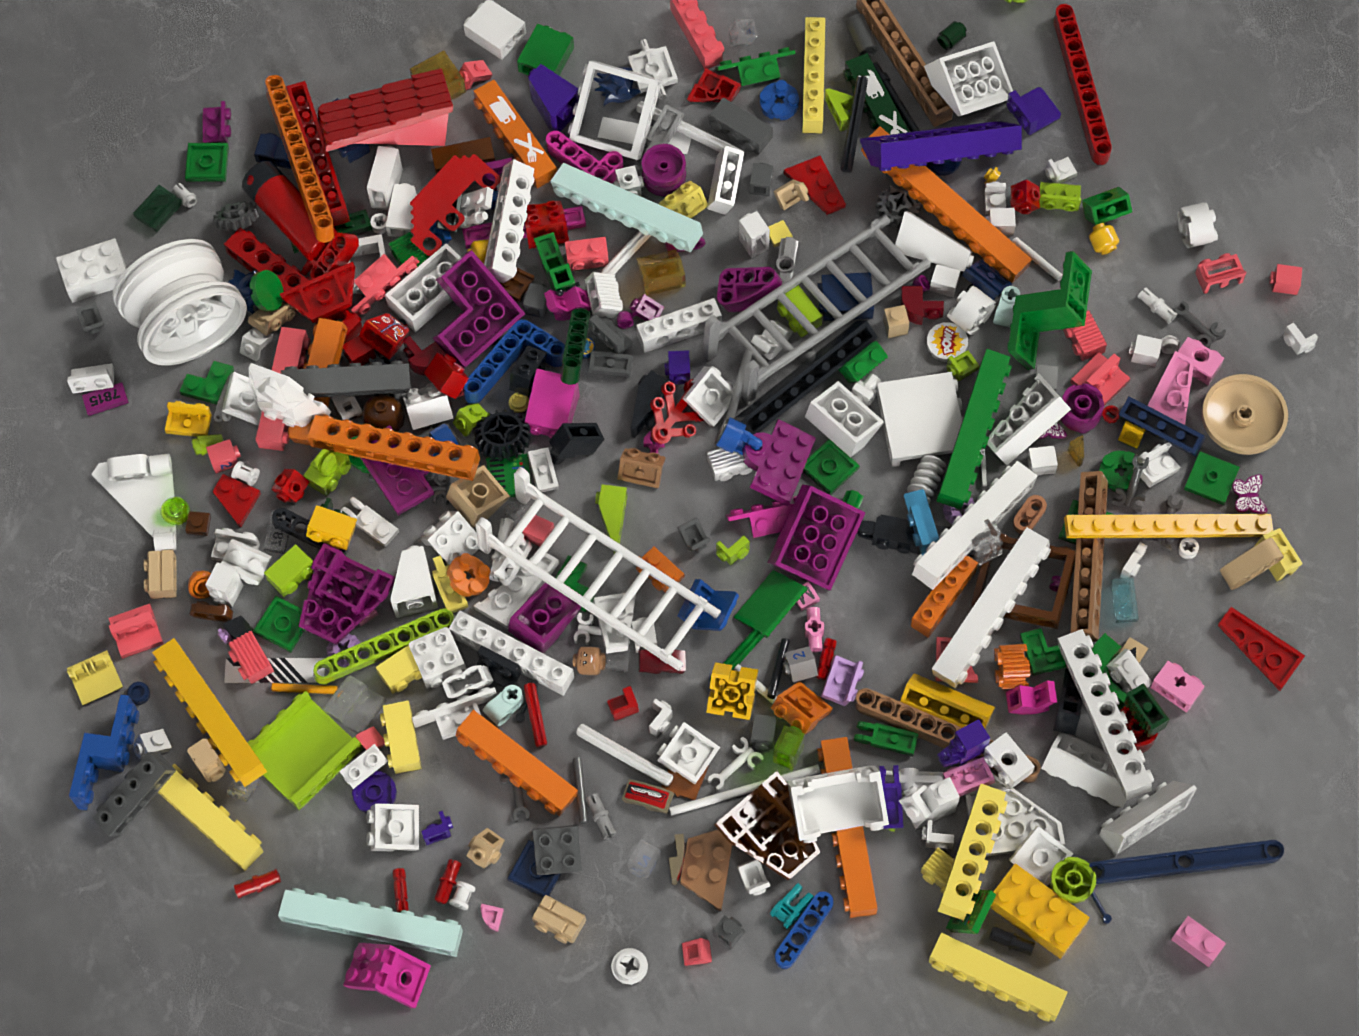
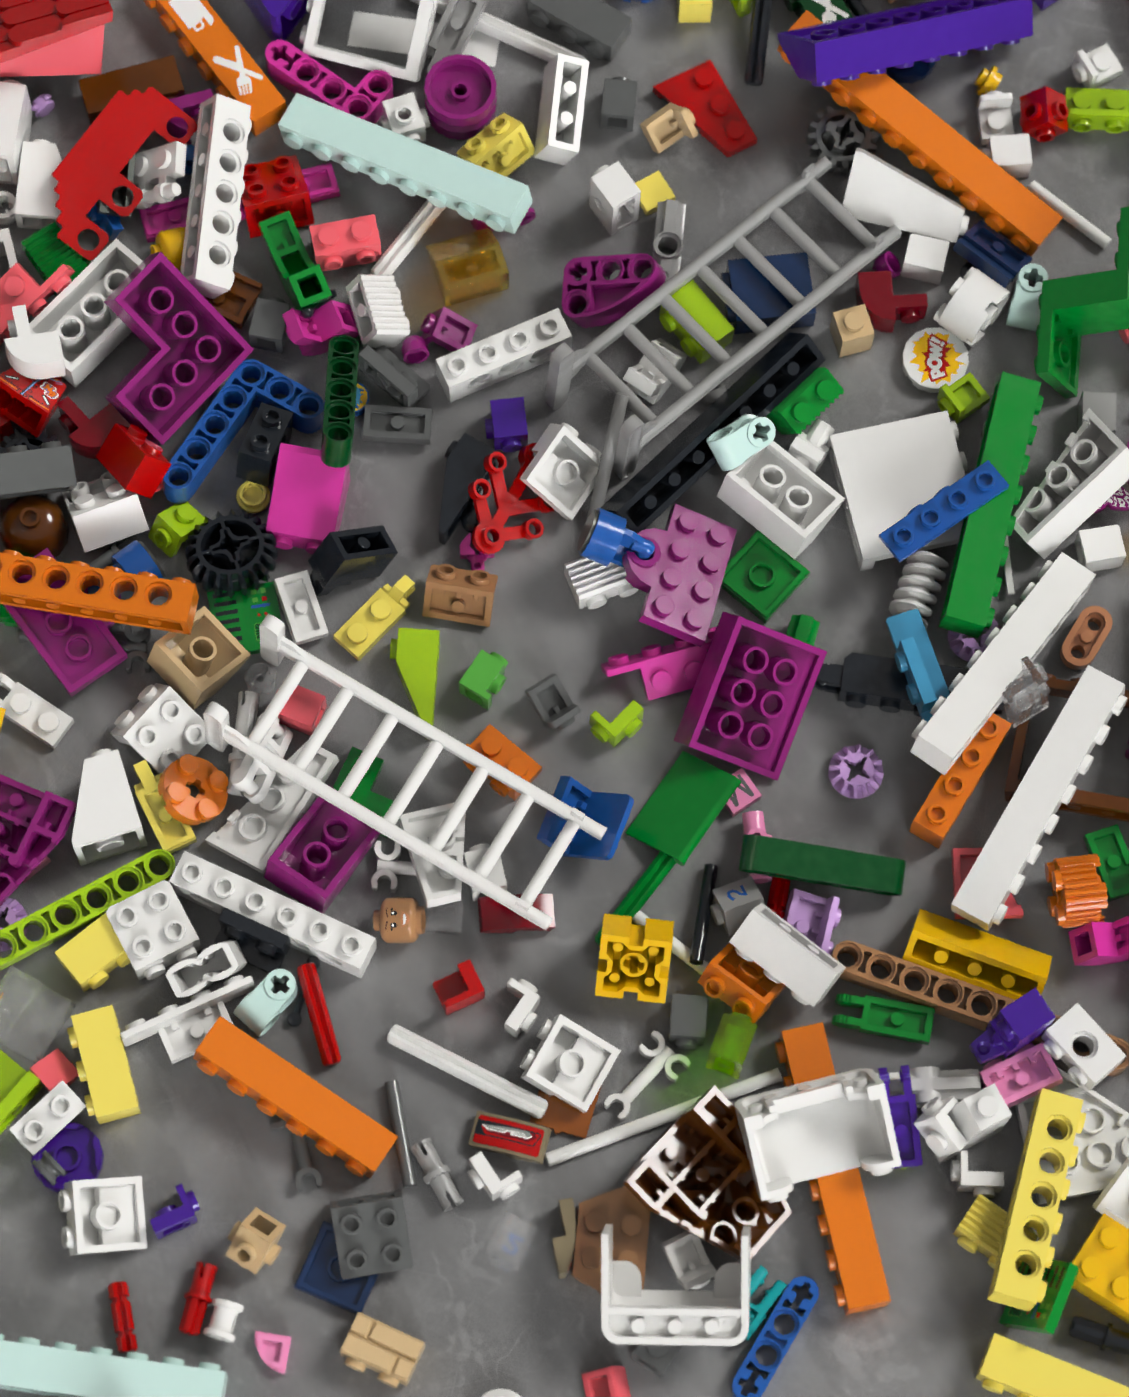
camera: 10 degrees left, 5 degrees up
(362, 796) = (49, 1168): none -> dark grey bush
(390, 308) = (33, 354): none -> white brick
(408, 163) = (43, 105): none -> lavender piece
(588, 479) = (375, 618): none -> light yellow hinge
(630, 819) = (484, 1177): none -> white bracket
(652, 518) = (484, 678): none -> bright green brick
(741, 909) = (674, 1315): none -> white windscreen
(818, 383) = (736, 441): none -> light aqua piece
(827, 694) = (786, 955): none -> white brick
(853, 641) = (822, 865): none -> dark green beam
(880, 597) = (859, 786): none -> lavender gear
(943, 430) = (943, 511): none -> blue bracket

